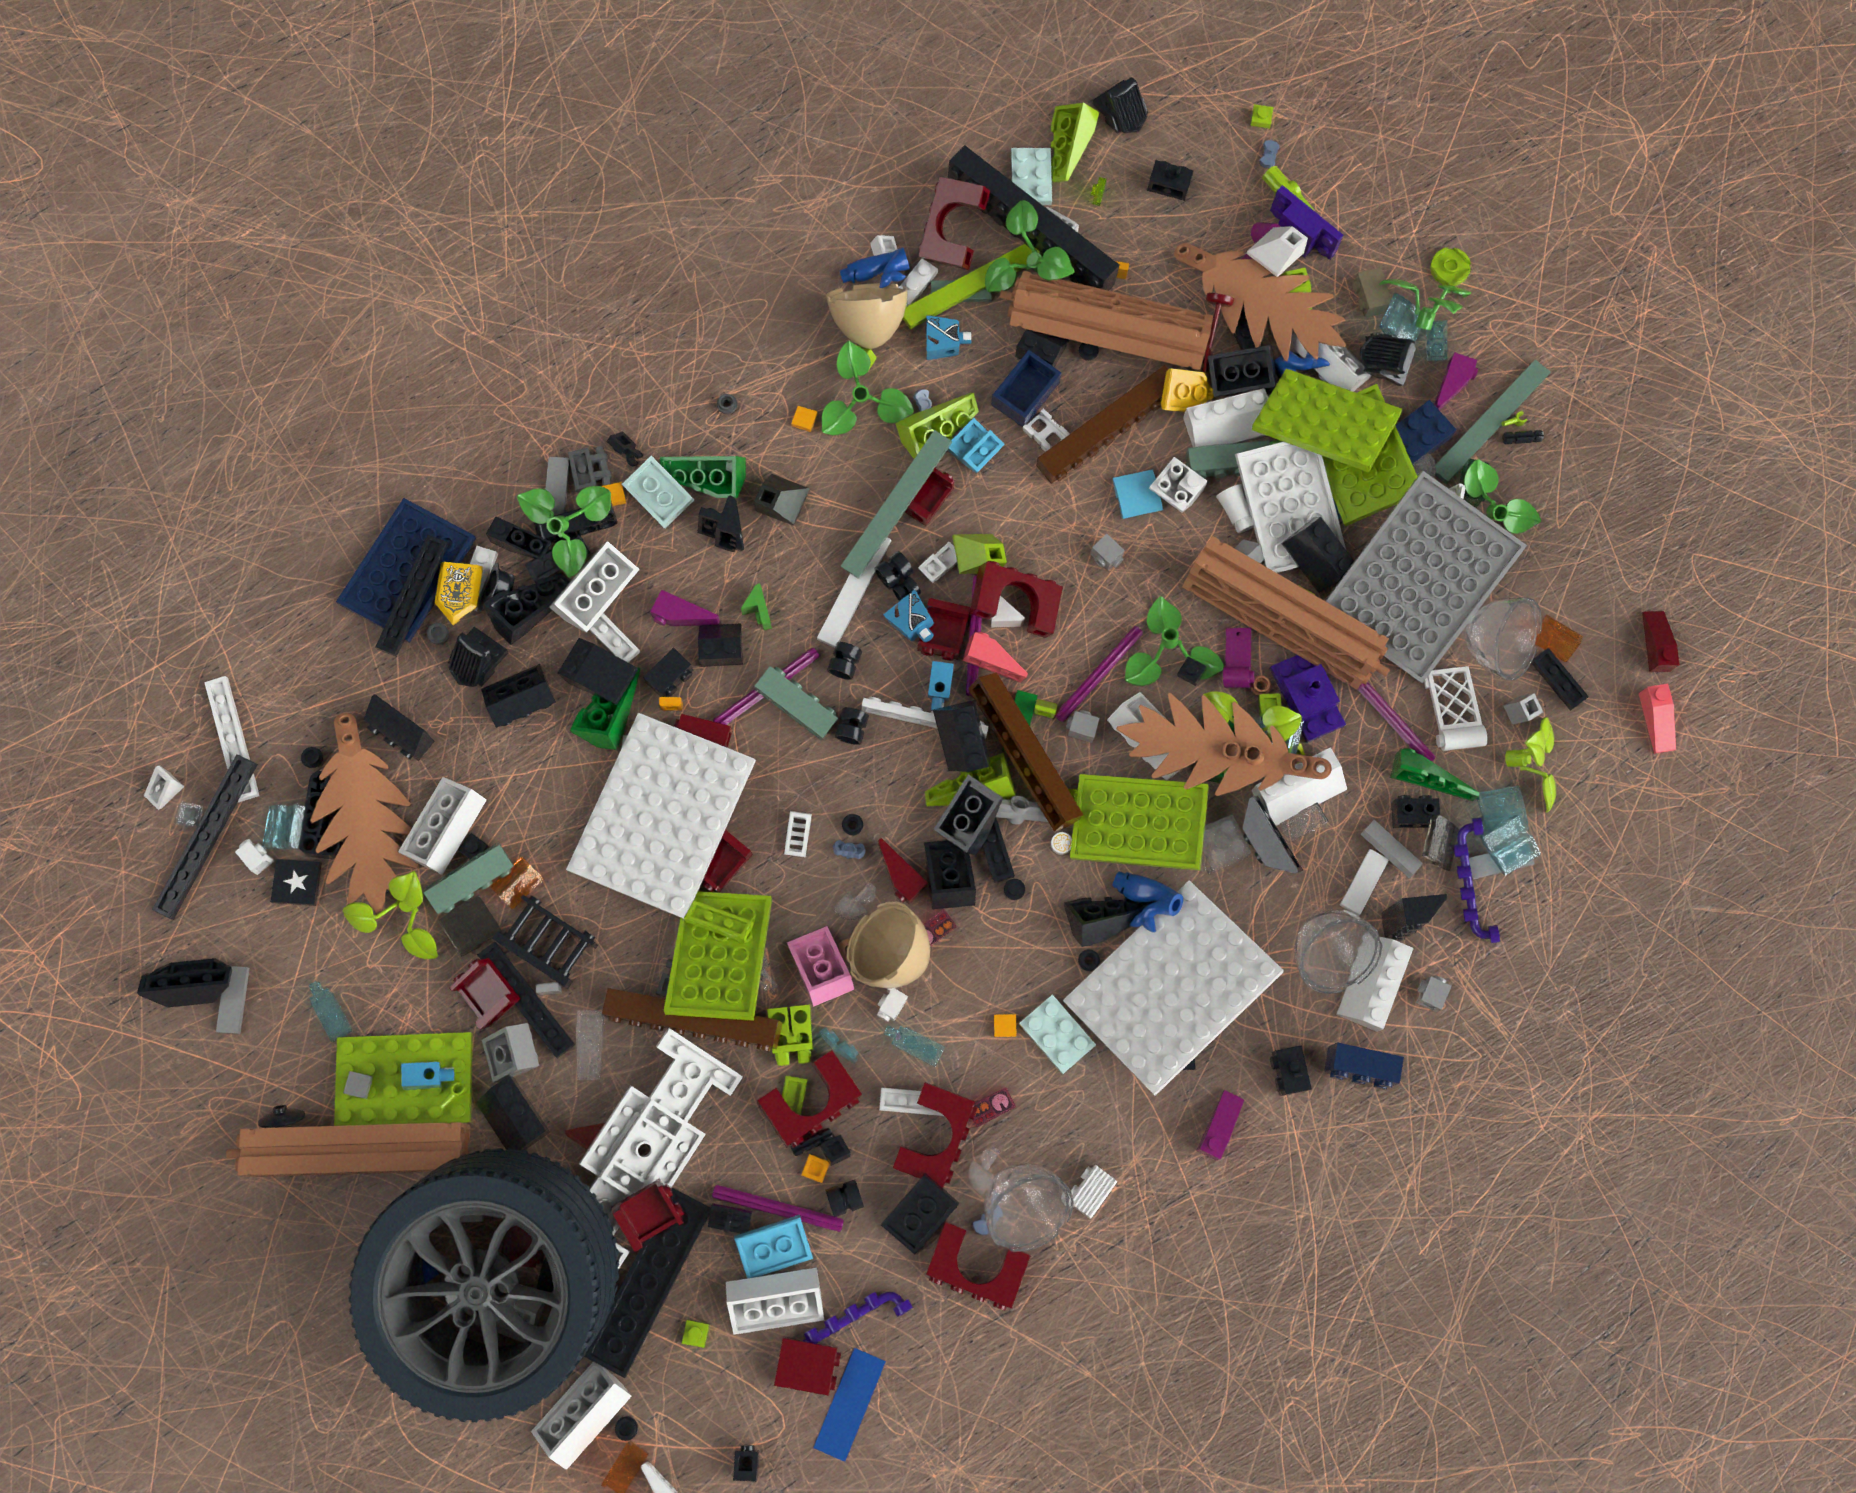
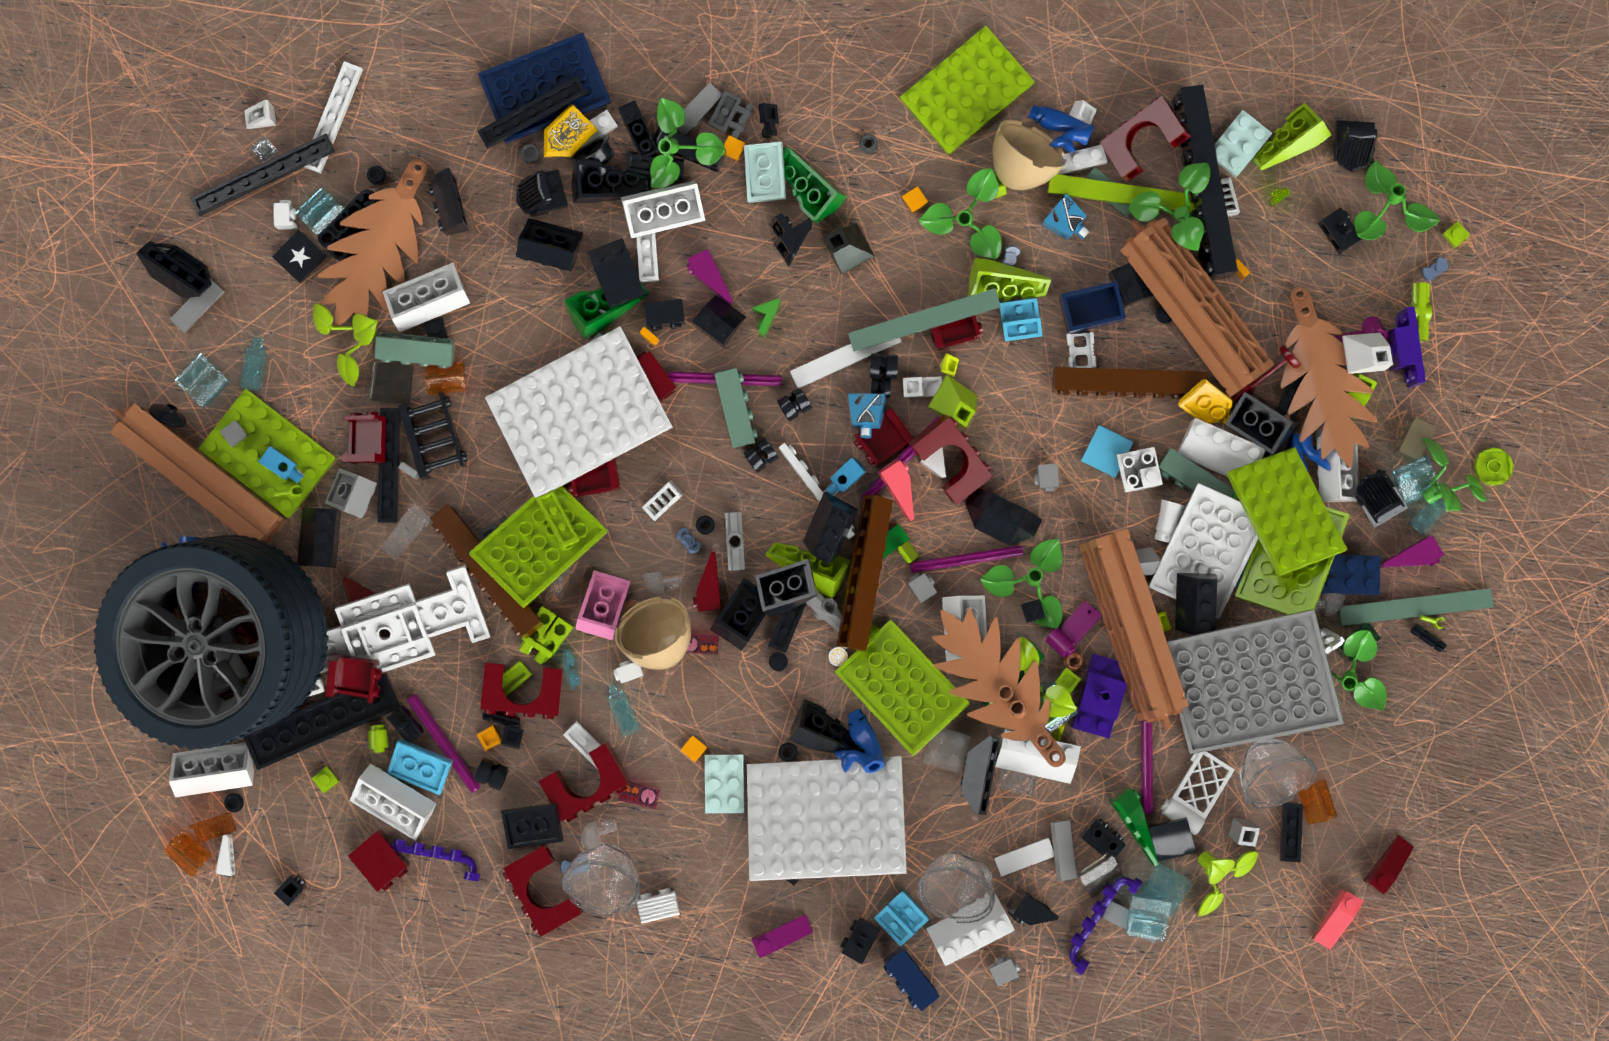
camera: 40 degrees right, 10 degrees up
(290, 1064) = (202, 381): none -> clear light blue slope
(713, 1253) = (377, 738): none -> lime brick
(773, 301) = (967, 90): none -> lime plate
(849, 1404) = (388, 907): blue sticker -> none
(880, 807) = (734, 528): none -> light grey piece
(946, 526) = (949, 365): none -> neon yellow slope
(1097, 615) = (1001, 517): none -> black wedge
(1192, 157) = (1380, 179): none -> bright green plant
(1308, 1021) = (902, 917): none -> medium azure slope
(1471, 762) = (1172, 839): none -> black slope

